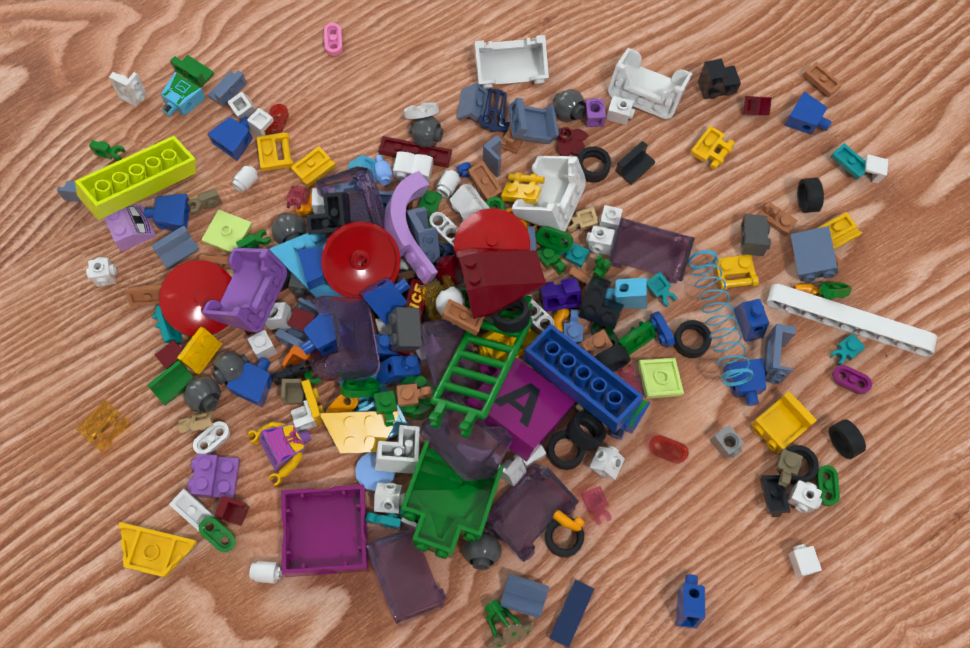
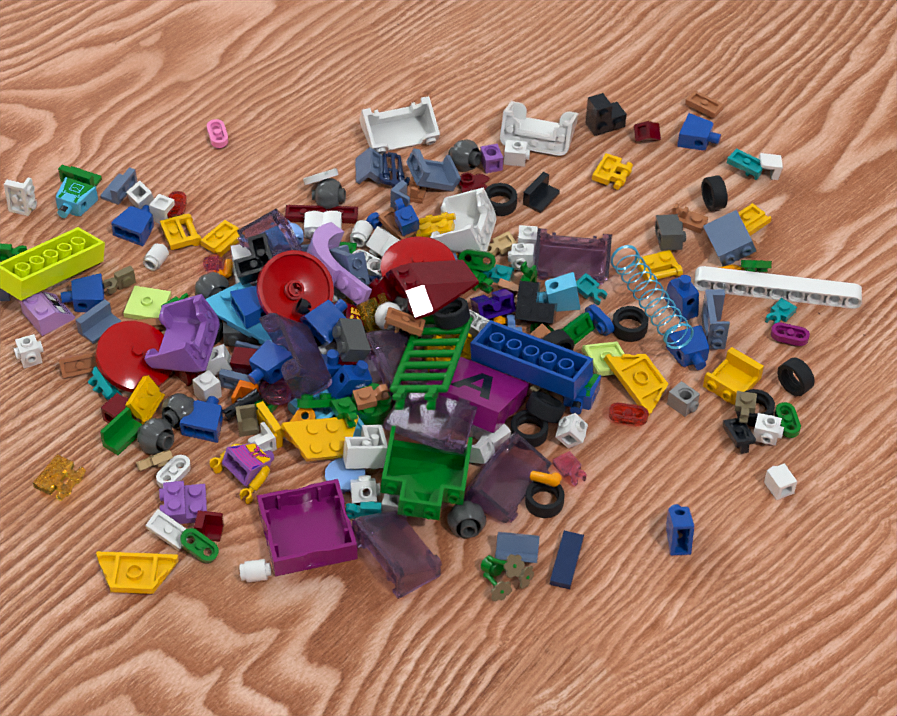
camera: 10 degrees left, 20 degrees down
(363, 282) = (303, 306): none -> black hinge
(492, 178) = (405, 218): none -> blue brick
(687, 410) = (639, 378): none -> yellow wing

